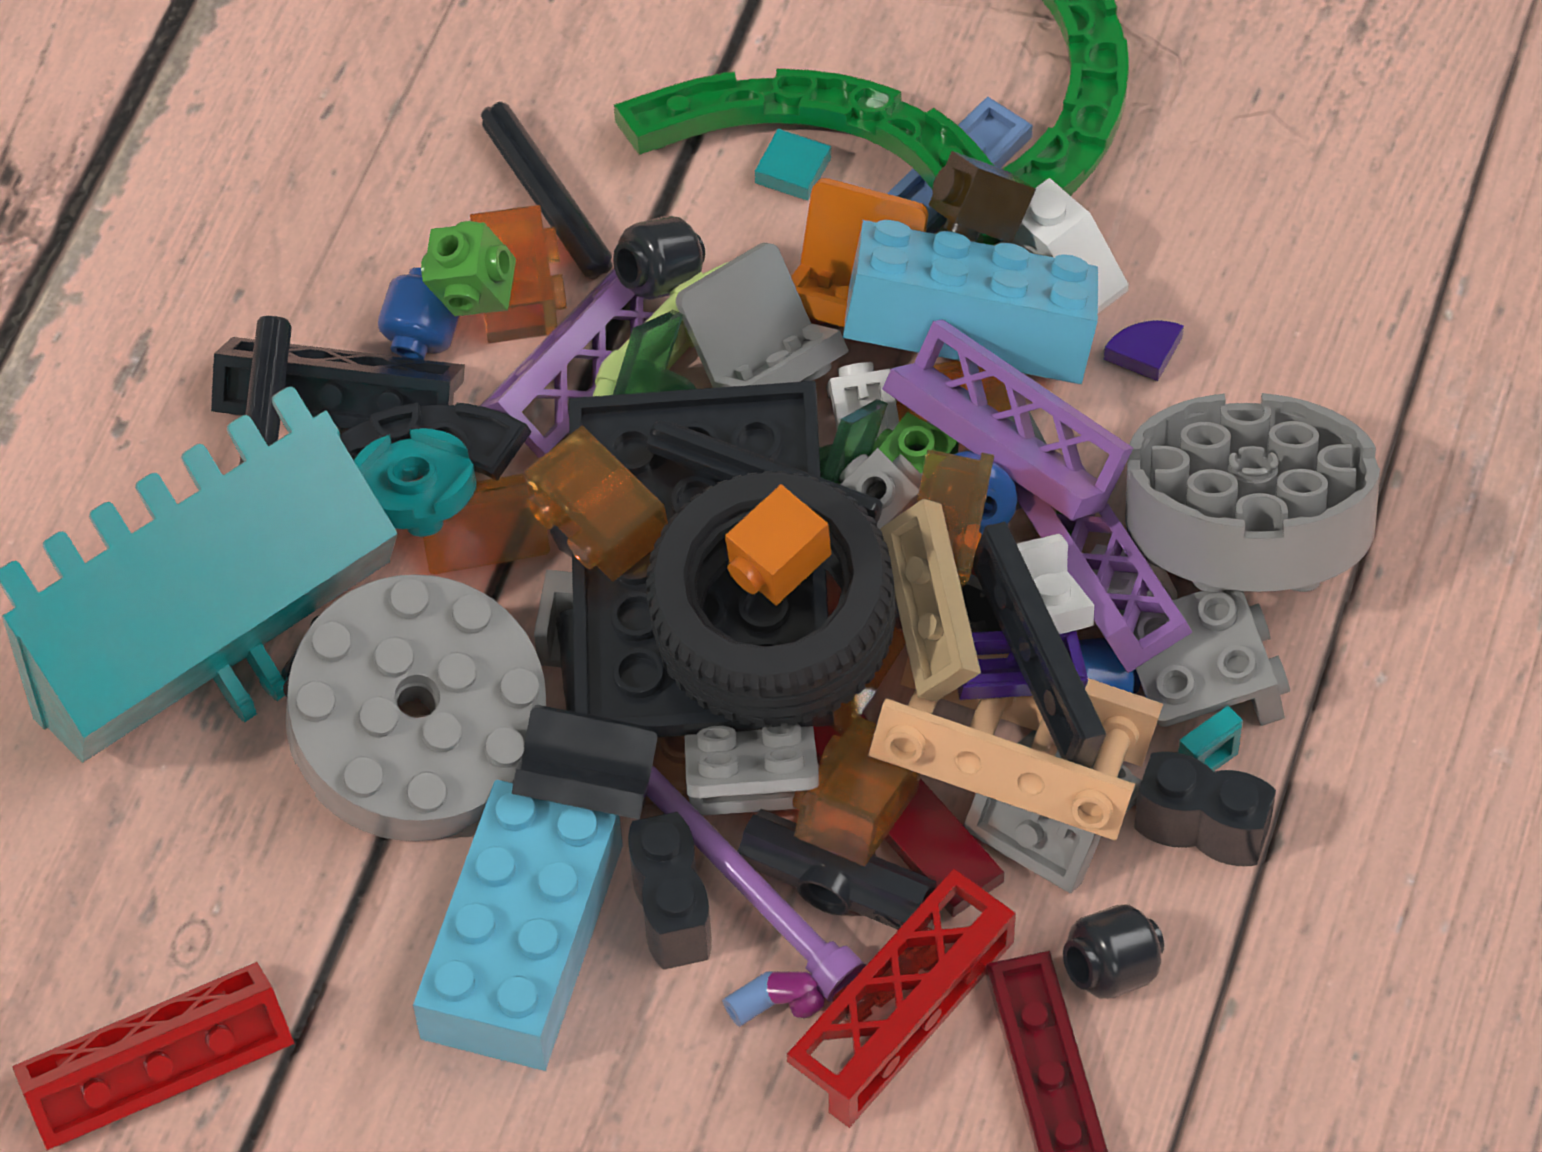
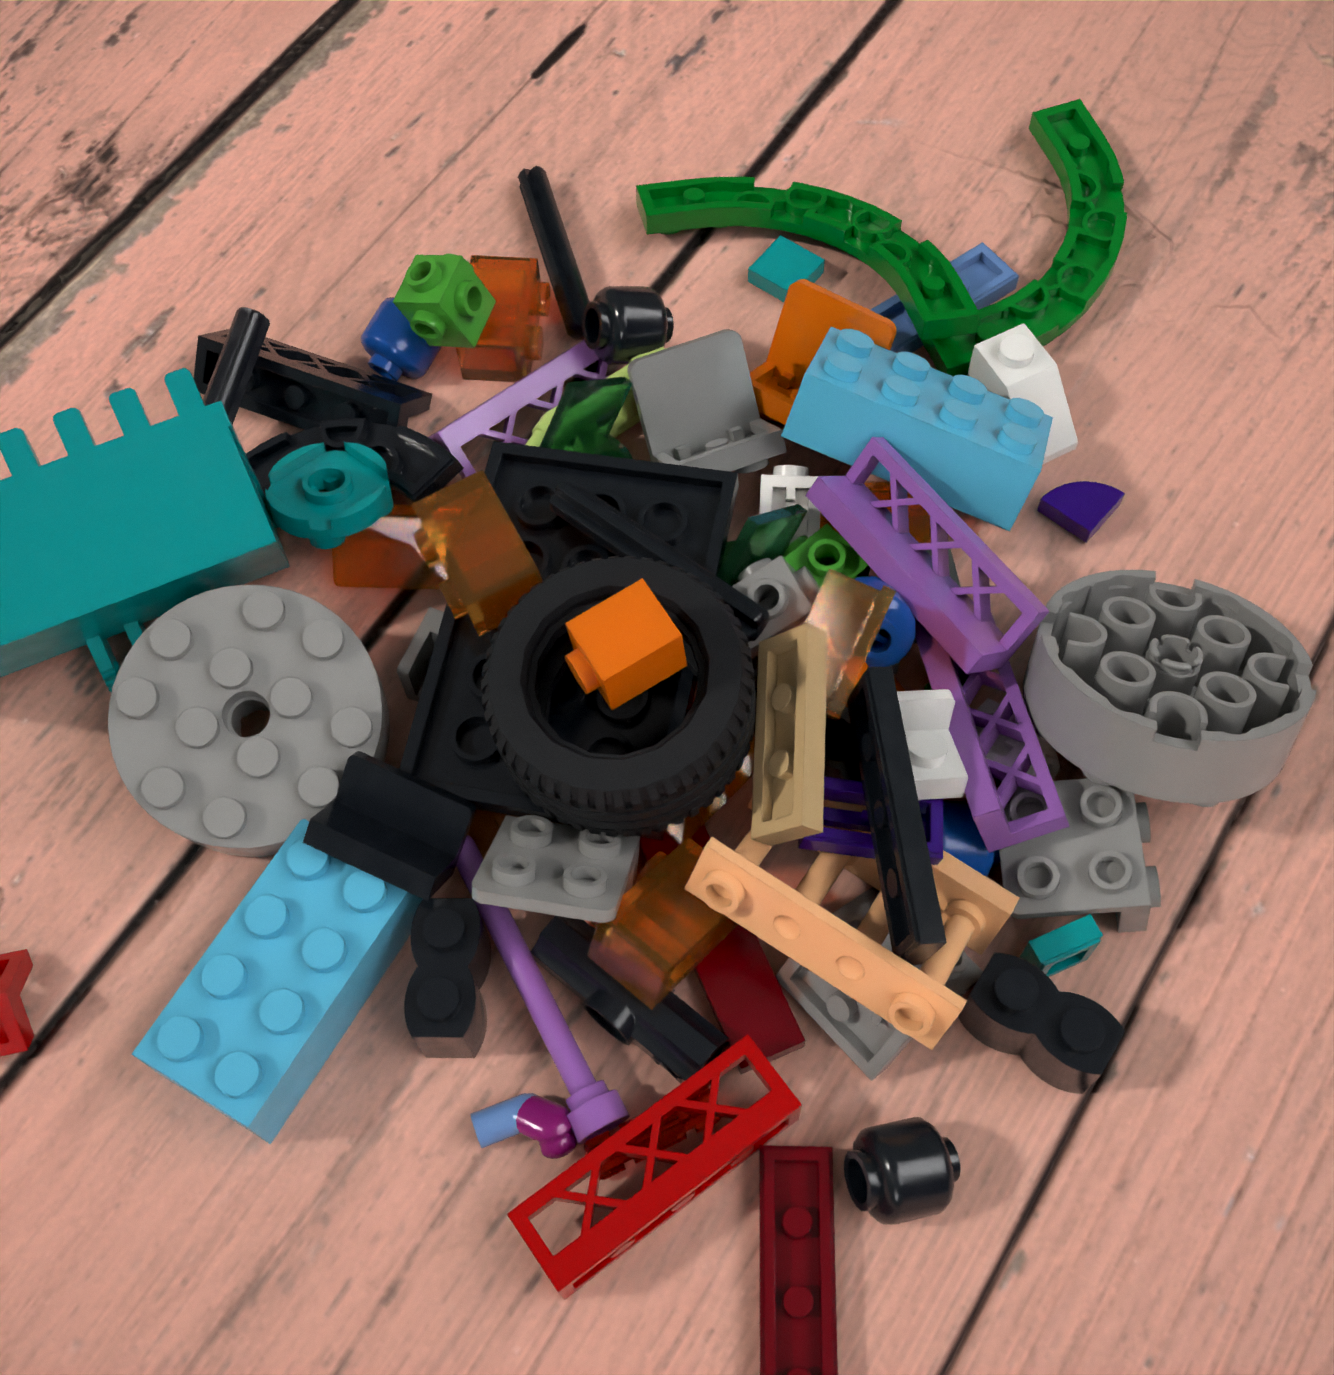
camera: 15 degrees right, 5 degrees up
(980, 198) = (950, 327): dark brown brick -> none

